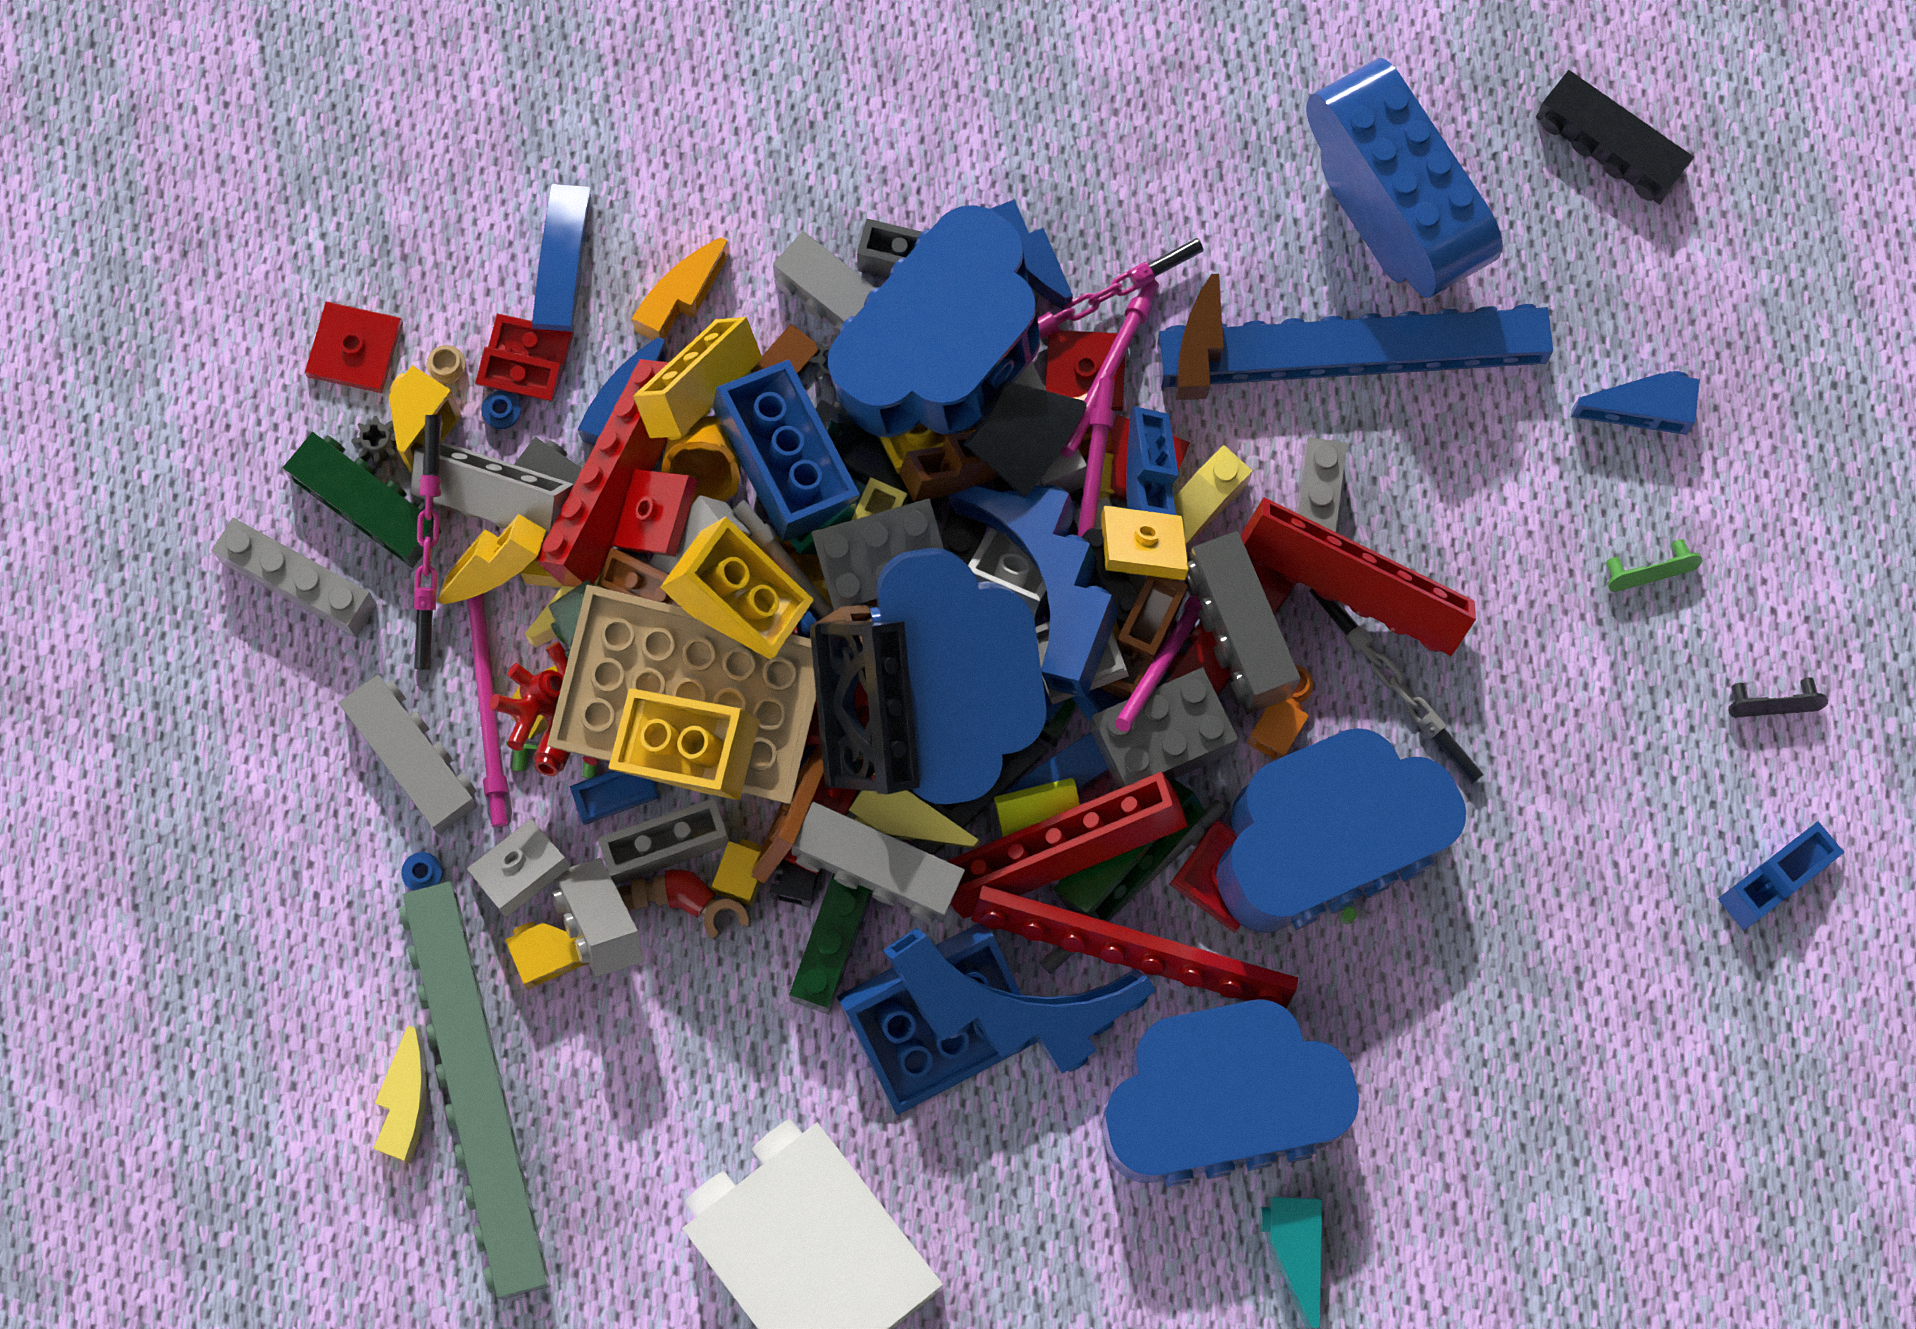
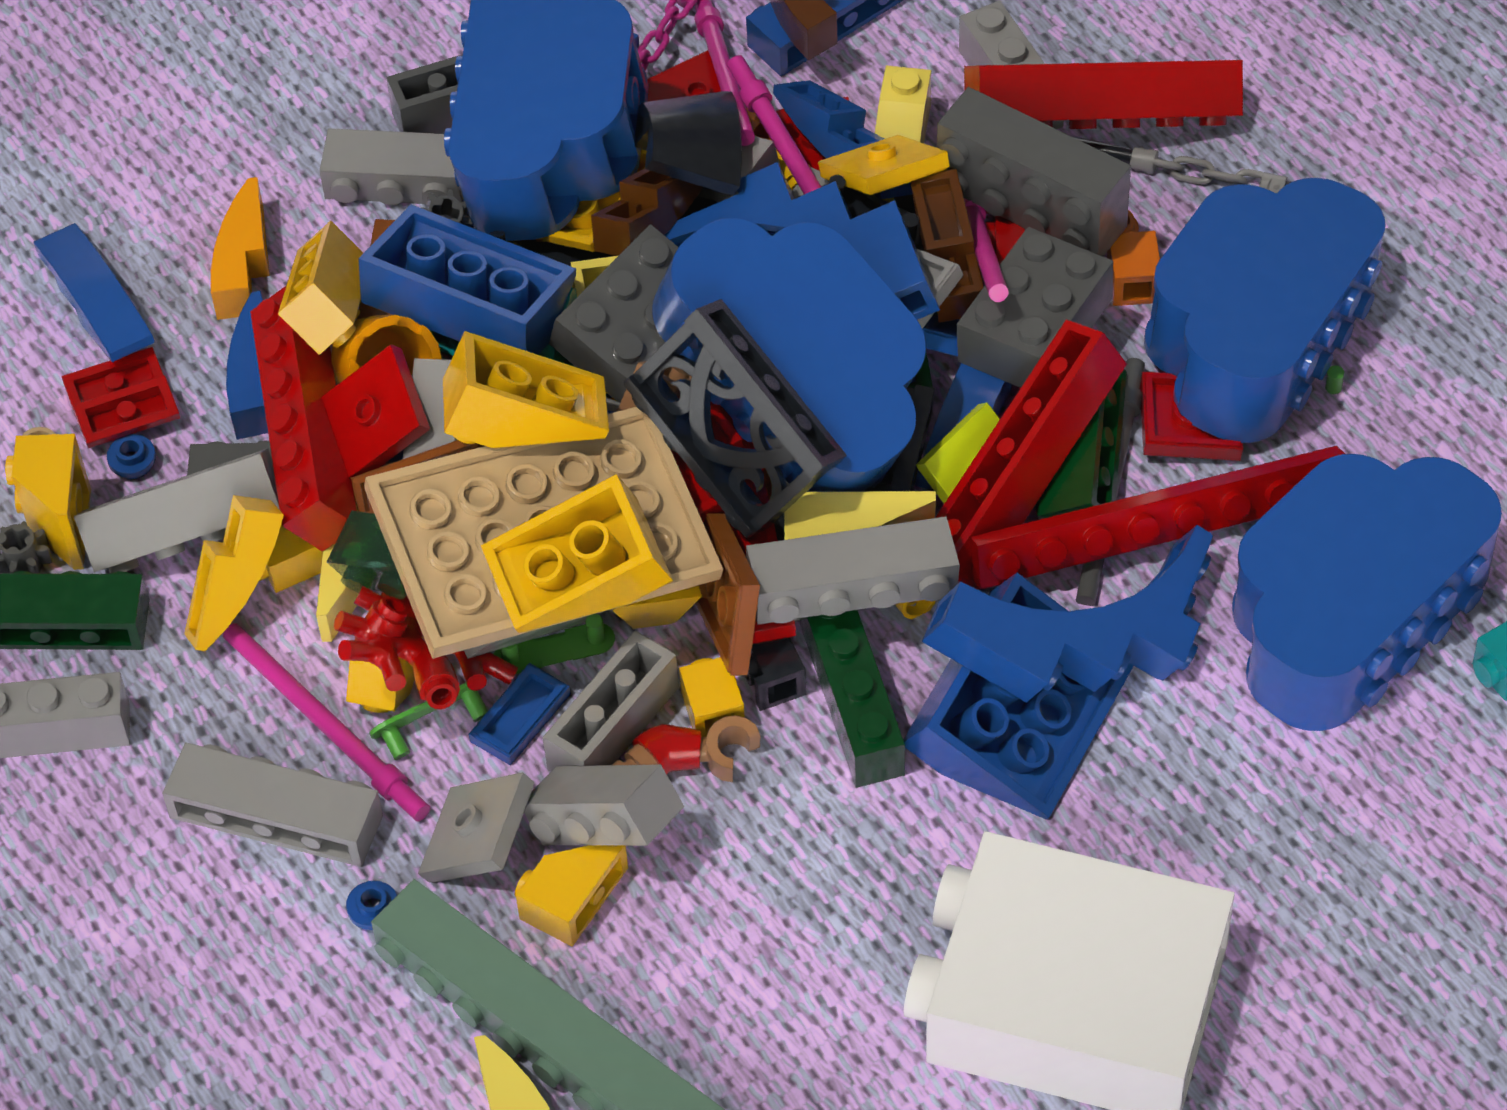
camera: 30 degrees left, 20 degrees down
(423, 596) = (182, 650): piece -> none

